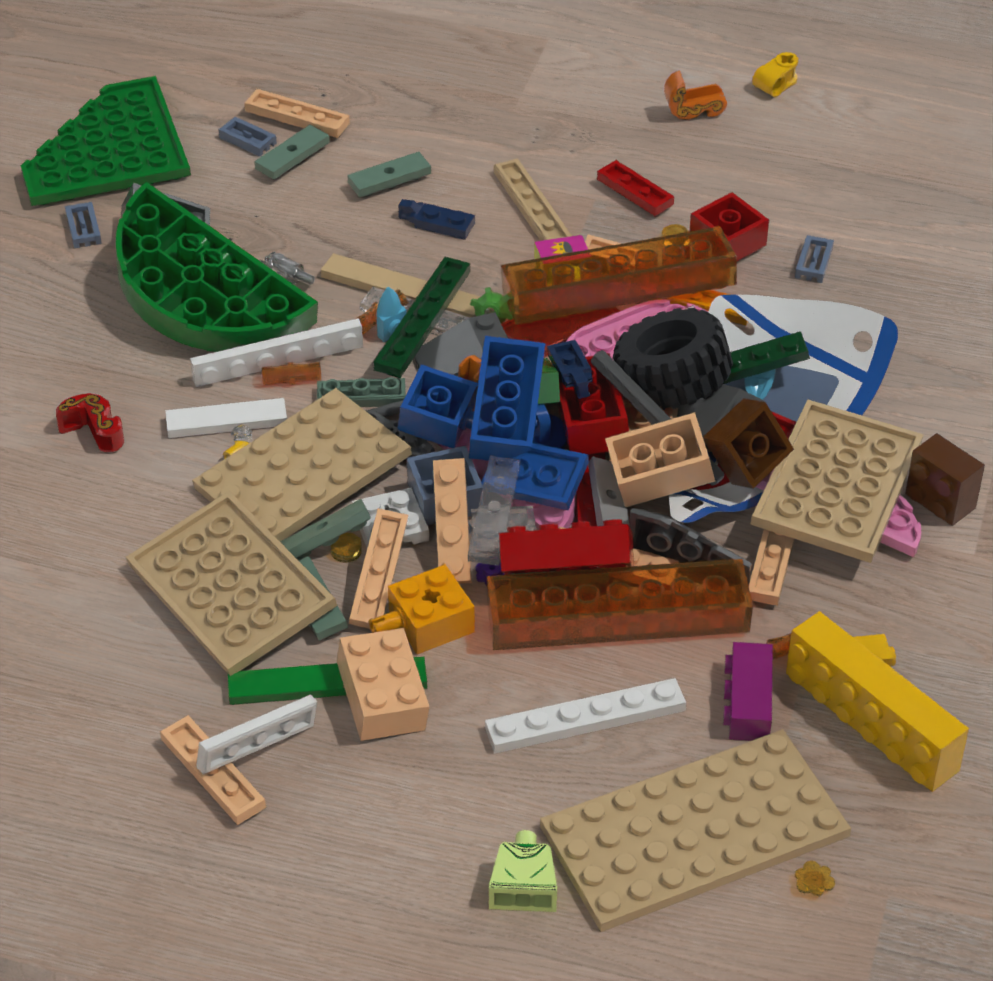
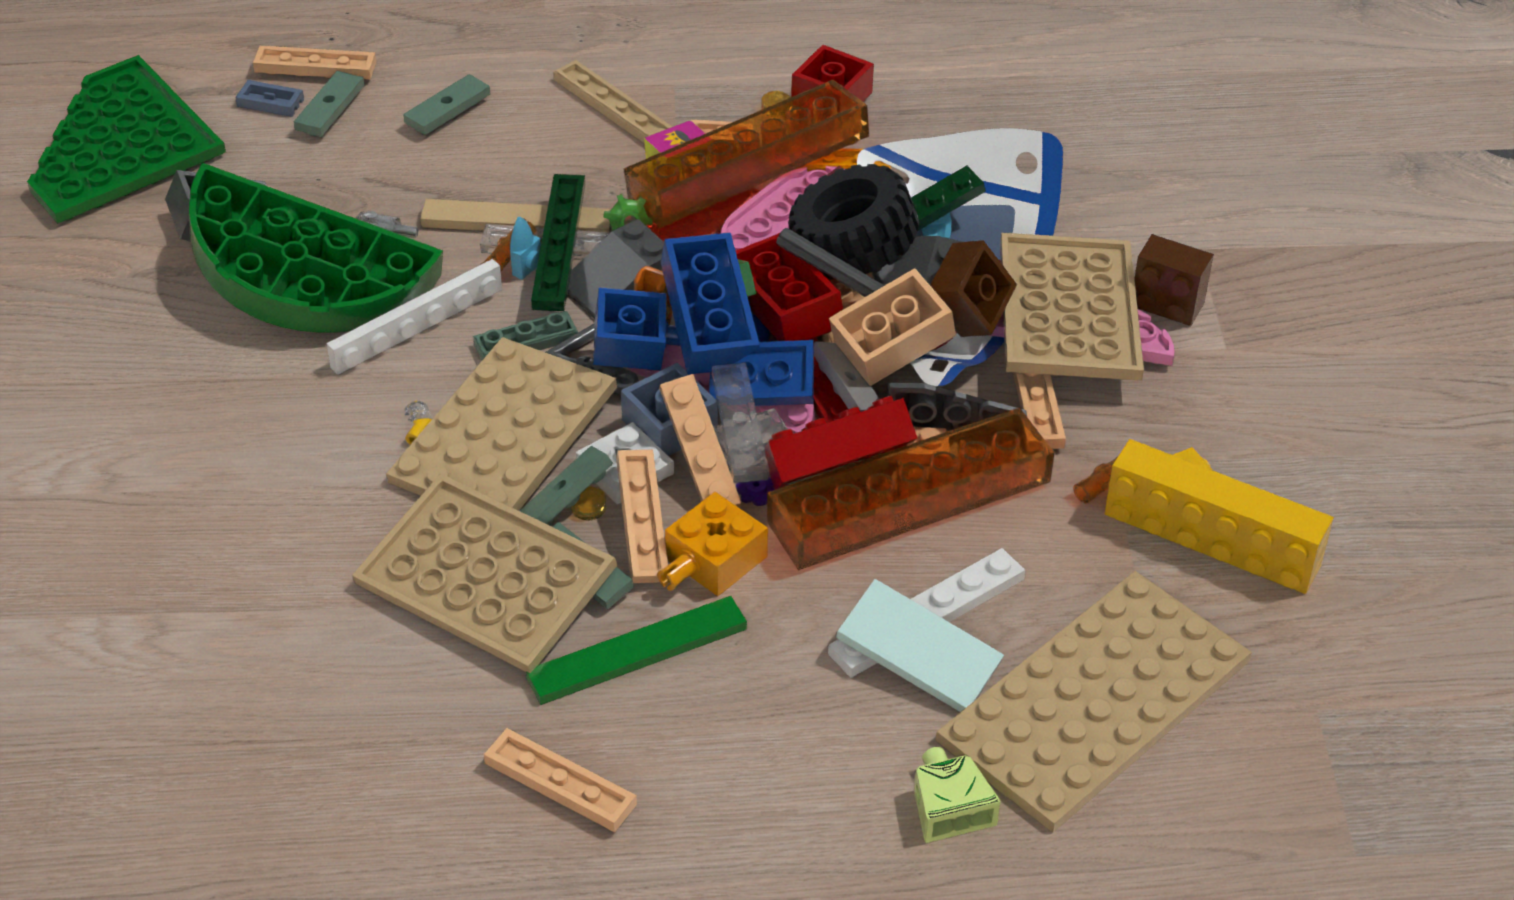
camera: 20 degrees left, 0 degrees up
(85, 237) = (135, 243): sand blue tile -> none
(96, 413) = (245, 430): red animal -> none
(225, 417) = (388, 398): white tile -> none
(256, 734) = (596, 727): white tile -> none
(291, 373) = (440, 334): clear orange pin -> none
(382, 684) = (706, 636): light nougat brick -> none
(436, 218) = (518, 139): dark blue hinge -> none
(559, 742) = (919, 646): none -> light aqua tile
(572, 366) = (760, 254): dark blue hinge -> none
(635, 188) = (713, 63): red plate -> none
(748, 691) = (1084, 541): magenta brick -> none
(811, 271) = (927, 108): sand blue tile -> none
(814, 879) = (1240, 714): clear yellow plant -> none

